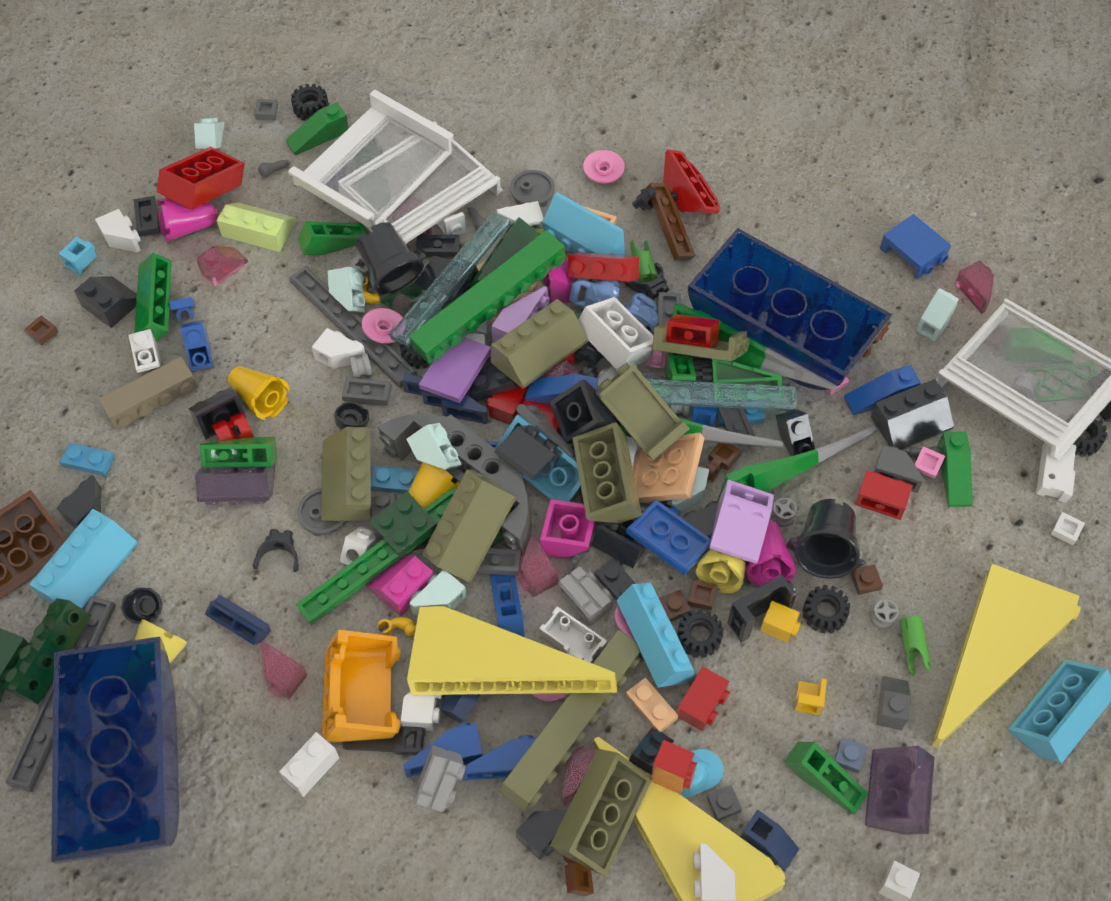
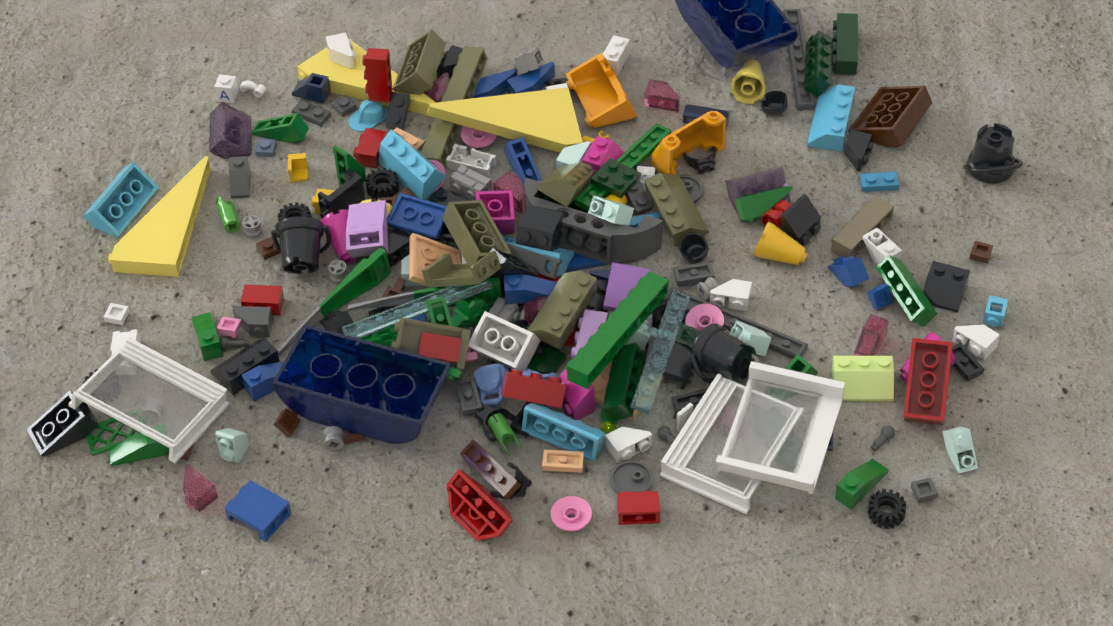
camera: 165 degrees right, 10 degrees down
(288, 569) = (702, 132): none -> light orange windscreen
(538, 156) = (638, 507): none -> red brick
(743, 647) = (345, 161): none -> green slope
(774, 803) = (312, 112): none -> dark grey plate
(849, 872) = (258, 89): none -> white arm

